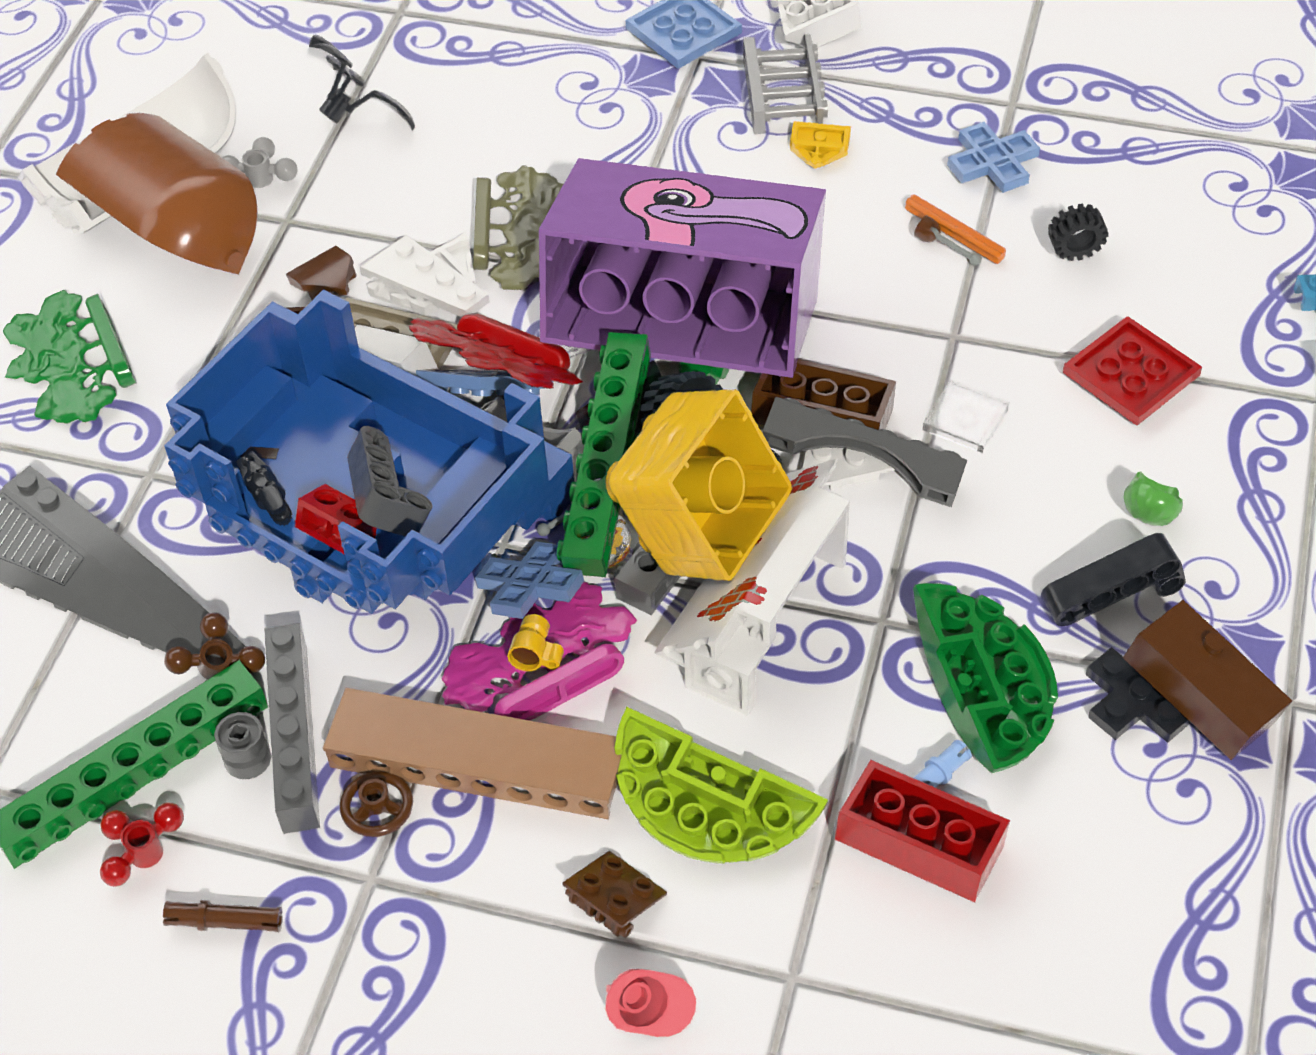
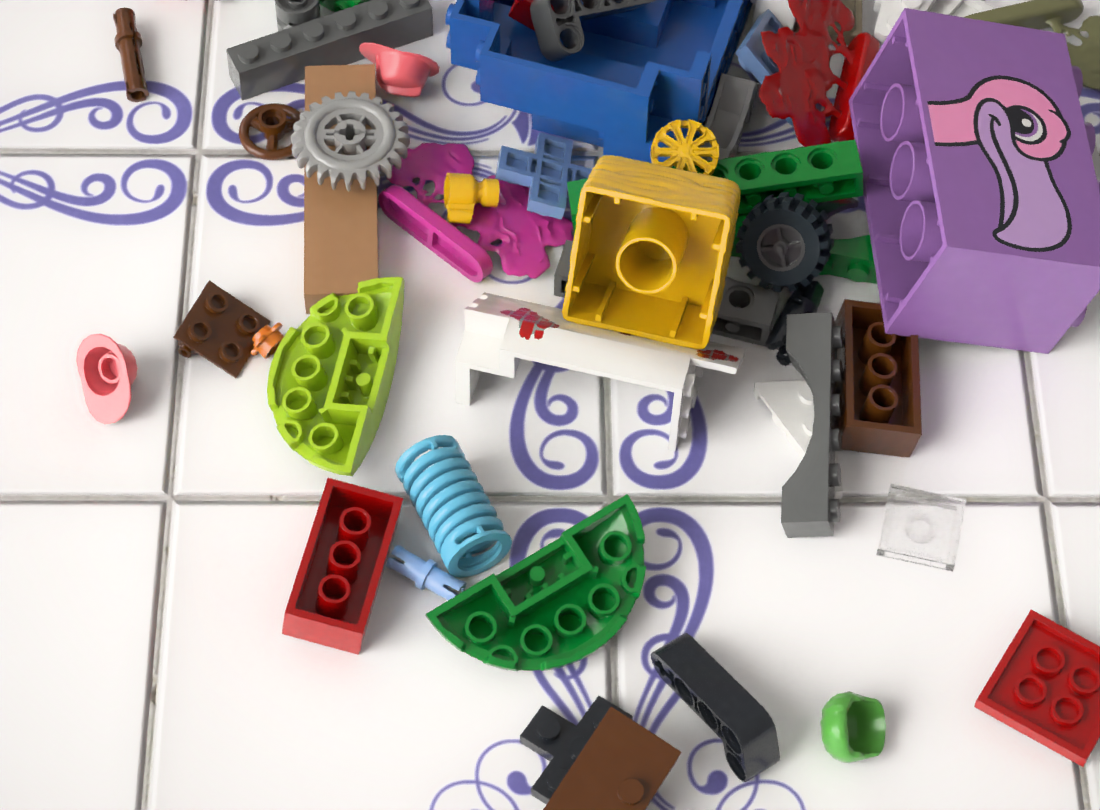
camera: 70 degrees right, 5 degrees up
(360, 671) = (399, 71): none -> coral piece
(448, 715) = (351, 158): none -> light grey gear
(578, 451) = (685, 152): none -> yellow wheel
(641, 850) = (267, 340): none -> orange plate
(890, 737) = (453, 506): none -> medium azure piece

